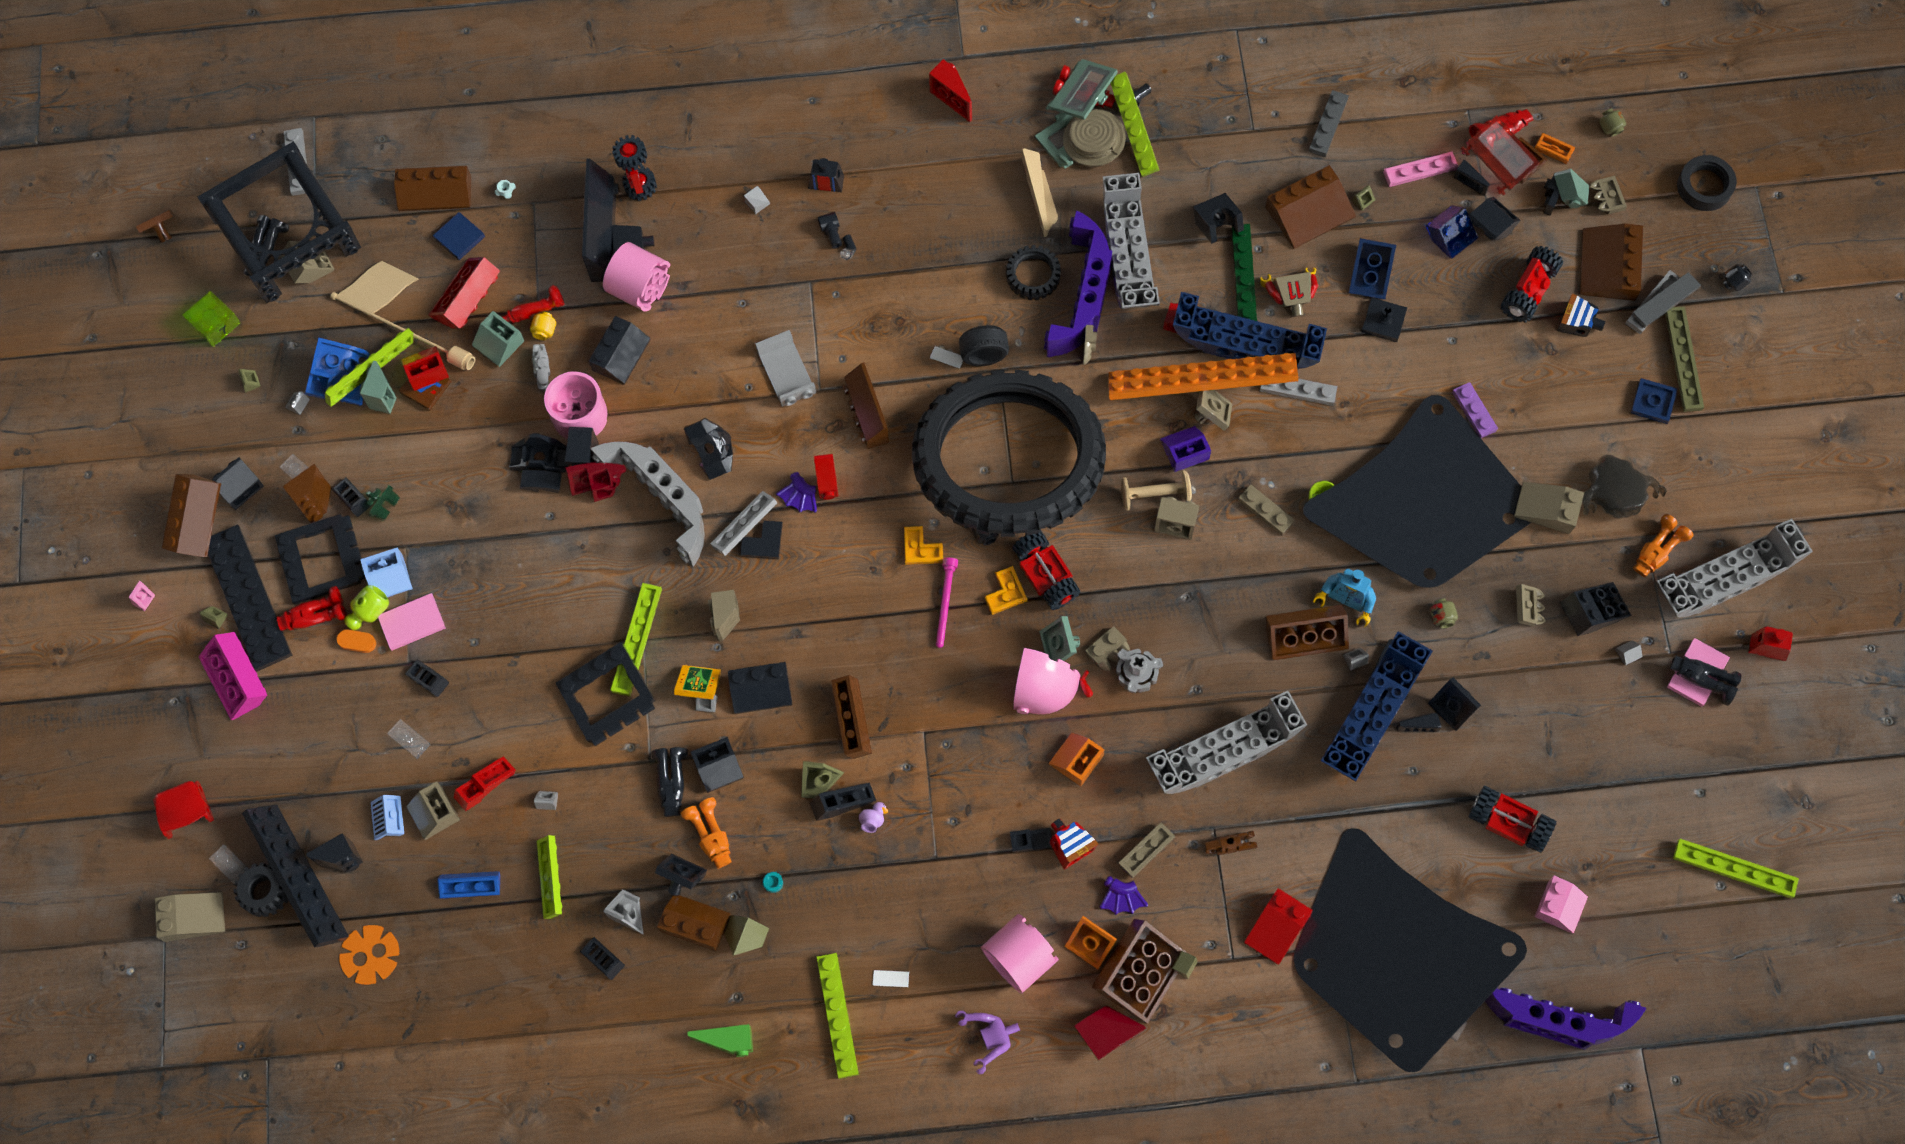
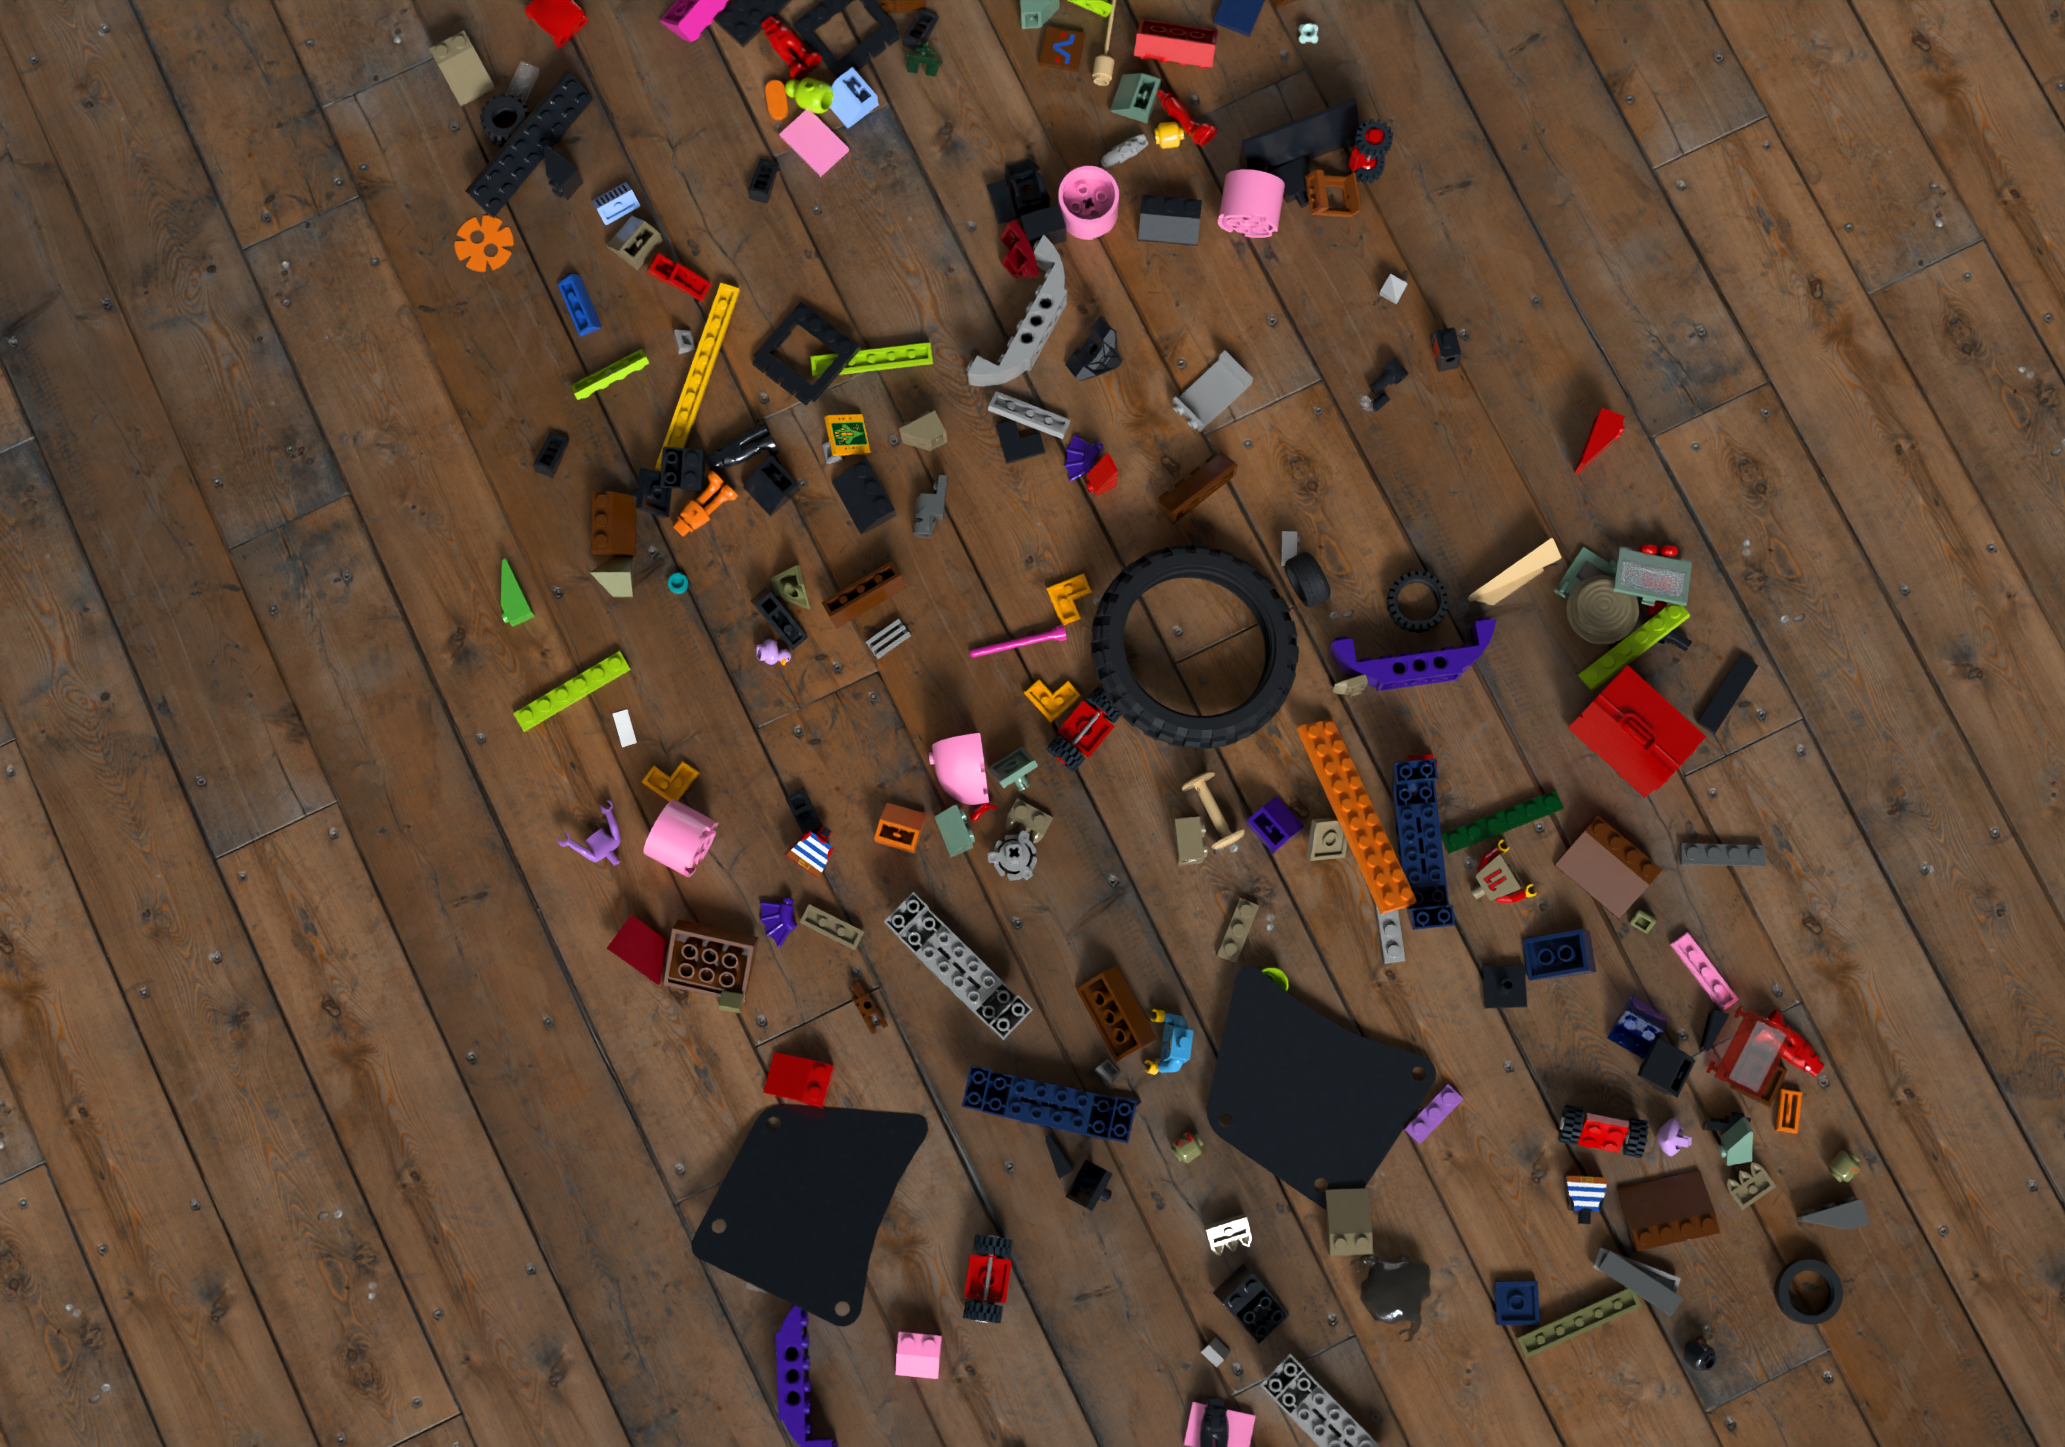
camera: 70 degrees right, 10 degrees up
(408, 739) = (697, 190): clear plate -> none
(424, 368) = (1076, 39): red slope -> none
(588, 798) = (701, 368): none -> yellow plate
(626, 911) = (601, 457): light grey slope -> none
(655, 223) = (1317, 194): none -> dark orange window
(669, 836) = (683, 468): none -> black slope
(793, 633) = (930, 508): none -> dark grey plate
(894, 697) = (872, 640): none -> light grey tile
(963, 952) = (674, 786): none -> light orange tile
(1091, 942) = (721, 904): orange slope -> none
(1097, 710) = (953, 830): none -> sand green slope
(1128, 242) = (1481, 689): light grey slope -> none
(1198, 74) = (1727, 694): none -> black tile
(1212, 138) = (1637, 732): none -> red piece
(1215, 213) = (1558, 766): black piece -> none
(1552, 236) = (1671, 1138): none -> lavender piece
(1652, 133) = (1842, 1216): none -> dark grey slope
(1654, 556) = (1332, 1346): orange piece -> none

